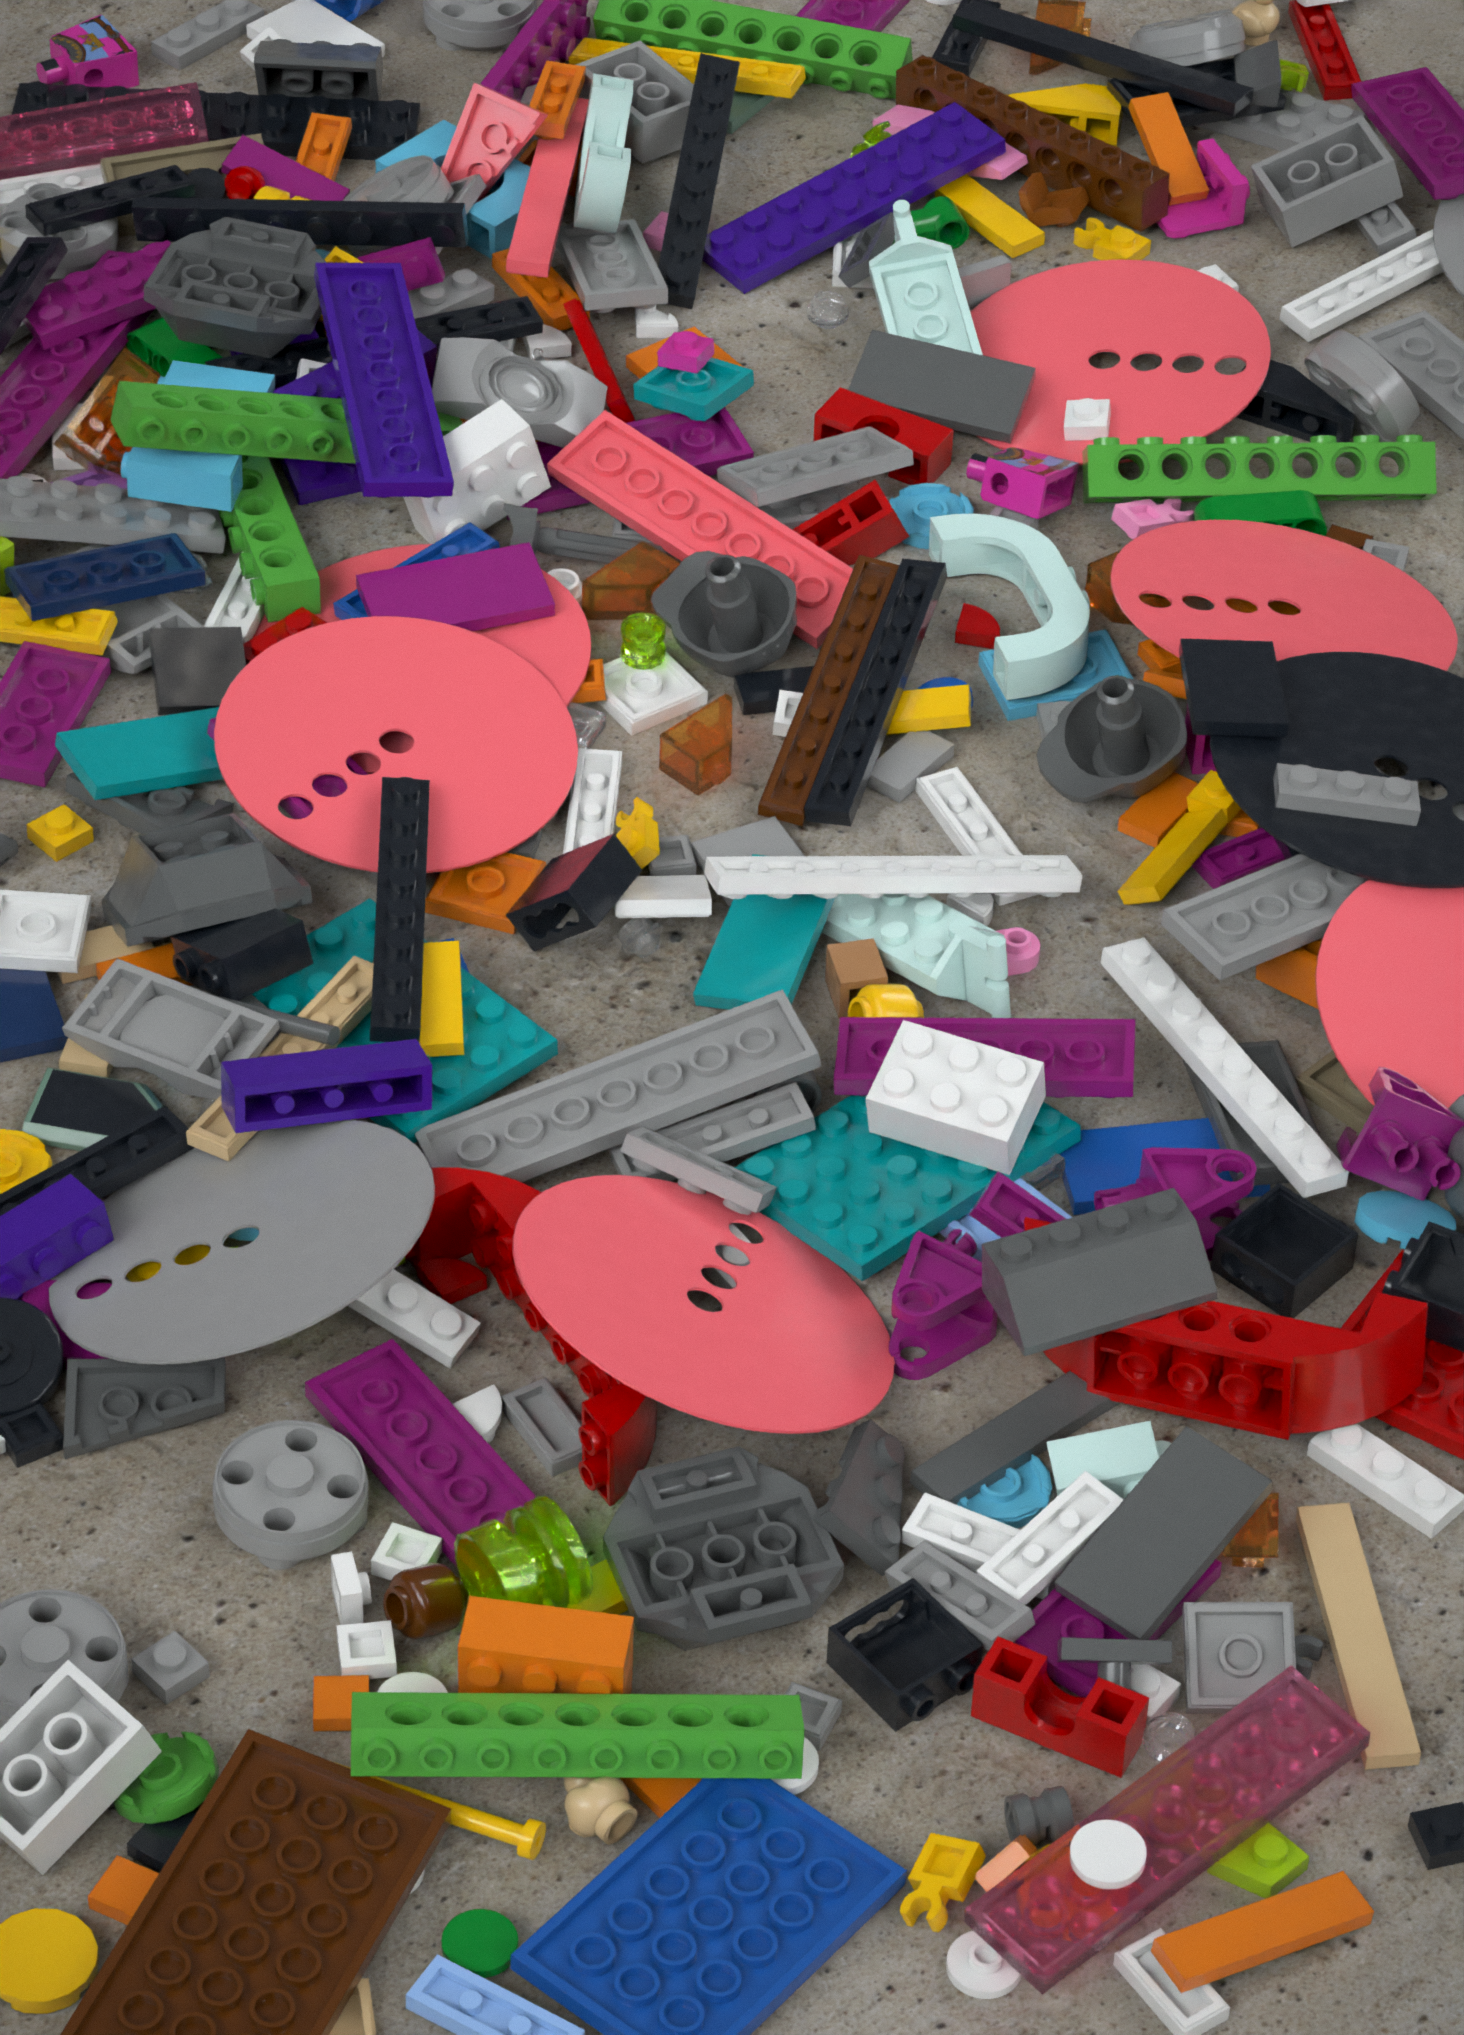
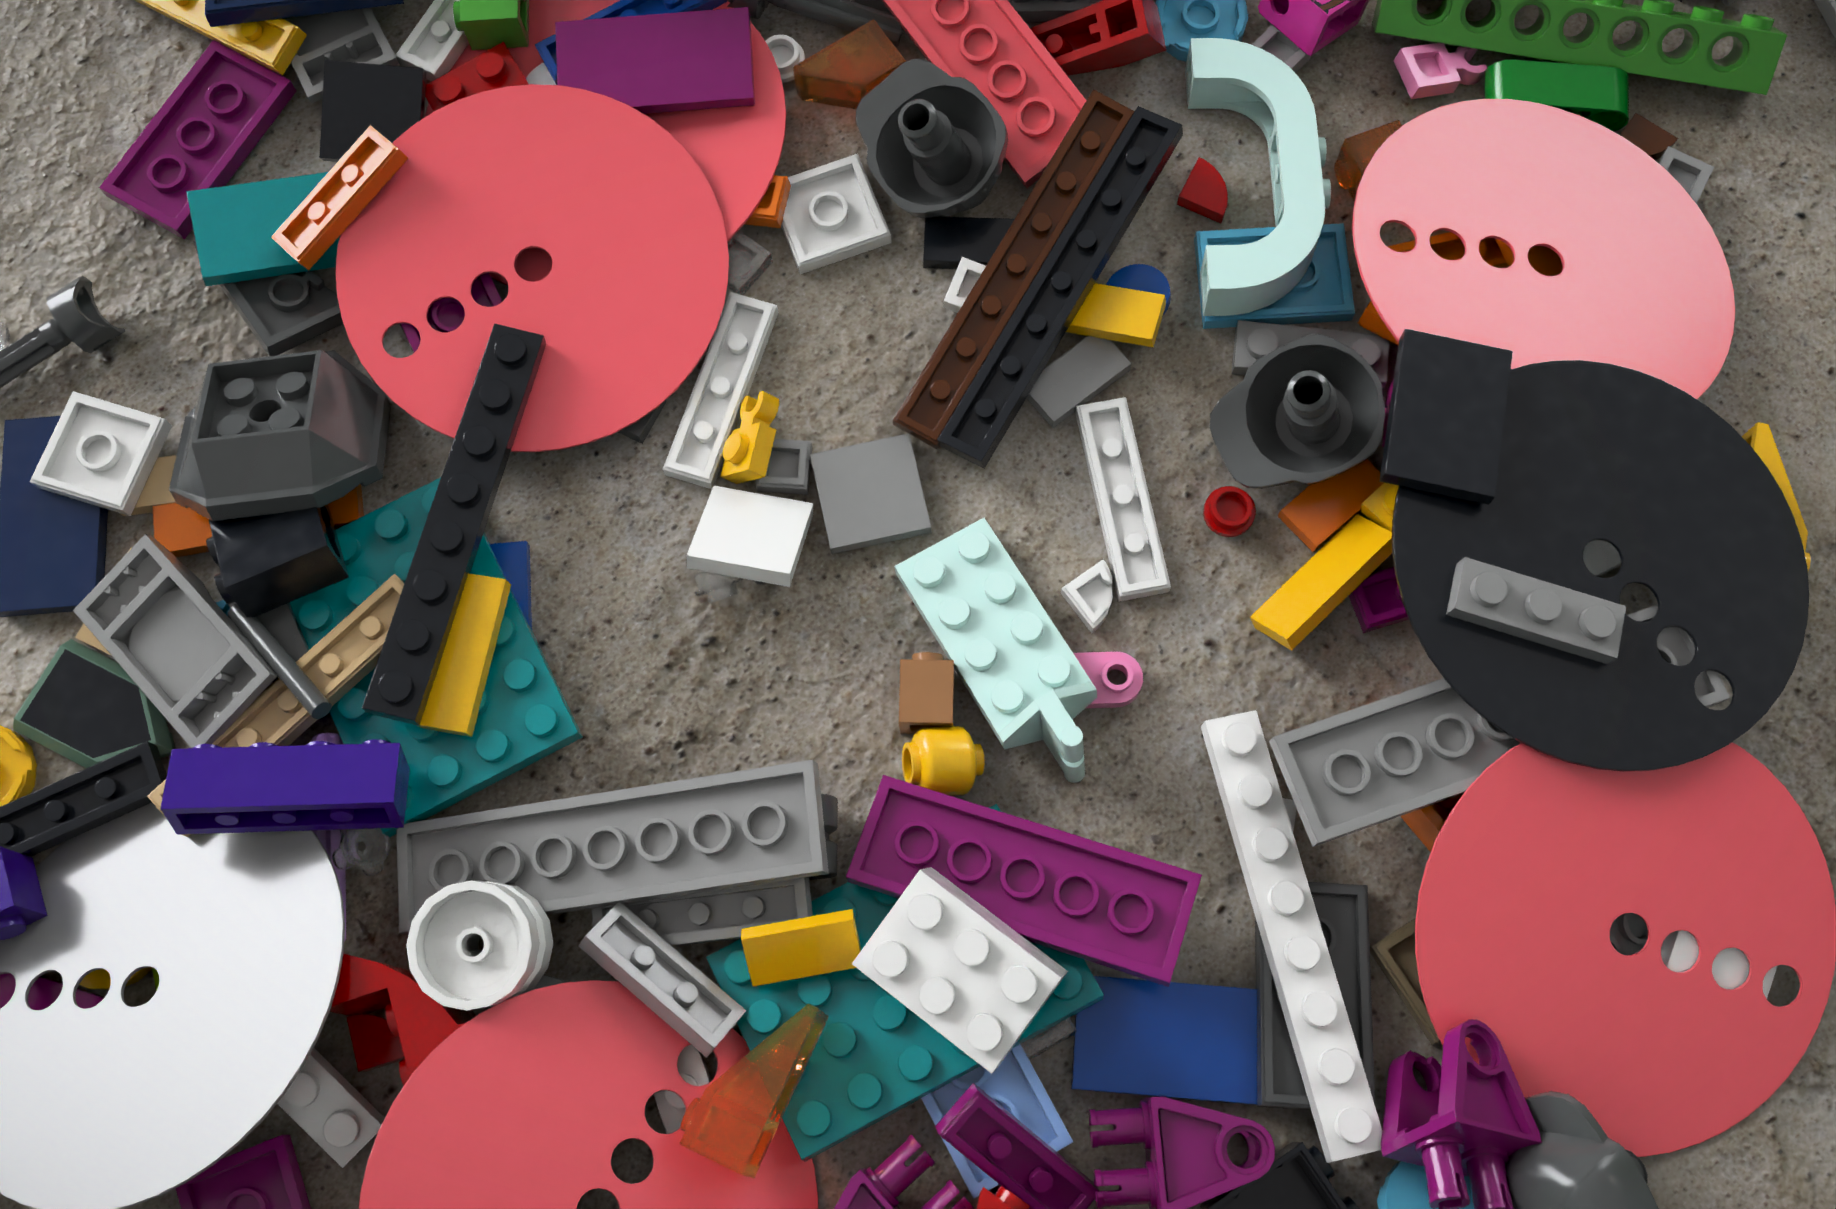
camera: 20 degrees right, 30 degrees up
(60, 832) = (179, 306): yellow plate -> none
(207, 713) = (339, 197): none -> orange tile
(483, 891) = (585, 481): orange tile -> none
(538, 1139) = (446, 949): none -> white wheel
(582, 879) = (654, 524): black piece -> none
(643, 641) = (839, 148): clear neon green wheel -> none
(699, 747) = (861, 318): clear orange slope -> none
(761, 949) = (849, 617): teal tile -> none
(806, 1217) = (747, 1102): none -> clear orange slope
(813, 1128) = (801, 947): none -> yellow tile
(880, 875) = (992, 583): white plate -> none
(1075, 826) = (1229, 511): none -> red plate

